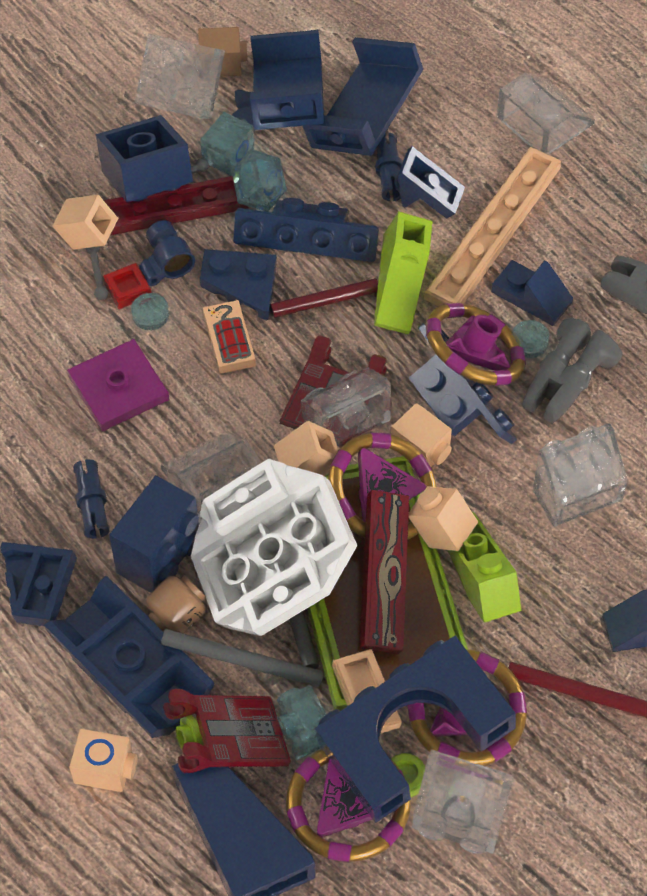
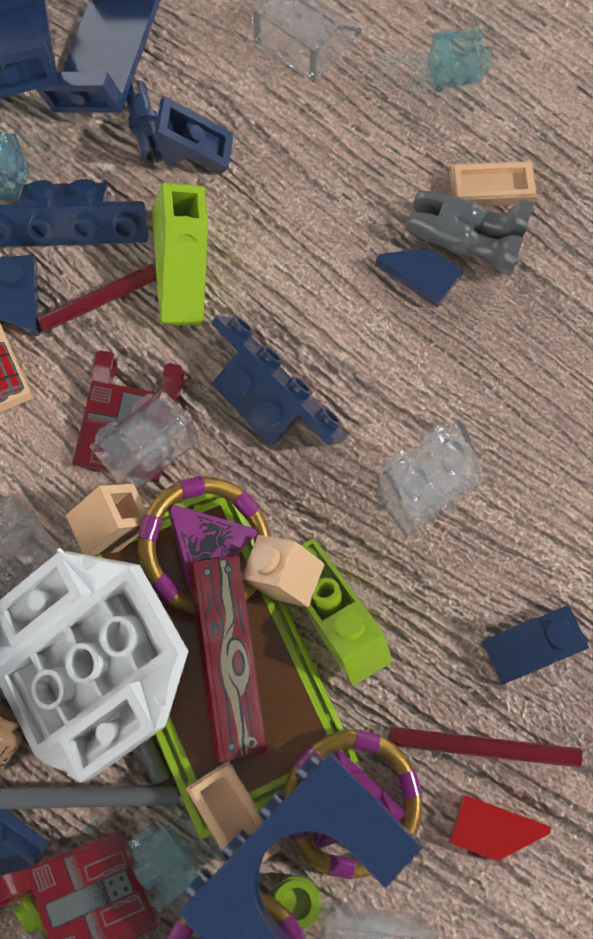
camera: 15 degrees left, 15 degrees up
(424, 433) = (239, 459): light nougat brick -> none
(476, 344) = (281, 332): magenta piece -> none
(493, 229) = (272, 182): light nougat tile -> none
(531, 337) = (339, 308): clear light blue tile -> none
(535, 292) = (334, 250): dark blue slope -> none
(565, 383) = (386, 357): dark grey piece -> none
(582, 753) = (493, 830): none -> red tile
(609, 318) = (421, 272): none -> dark blue tile

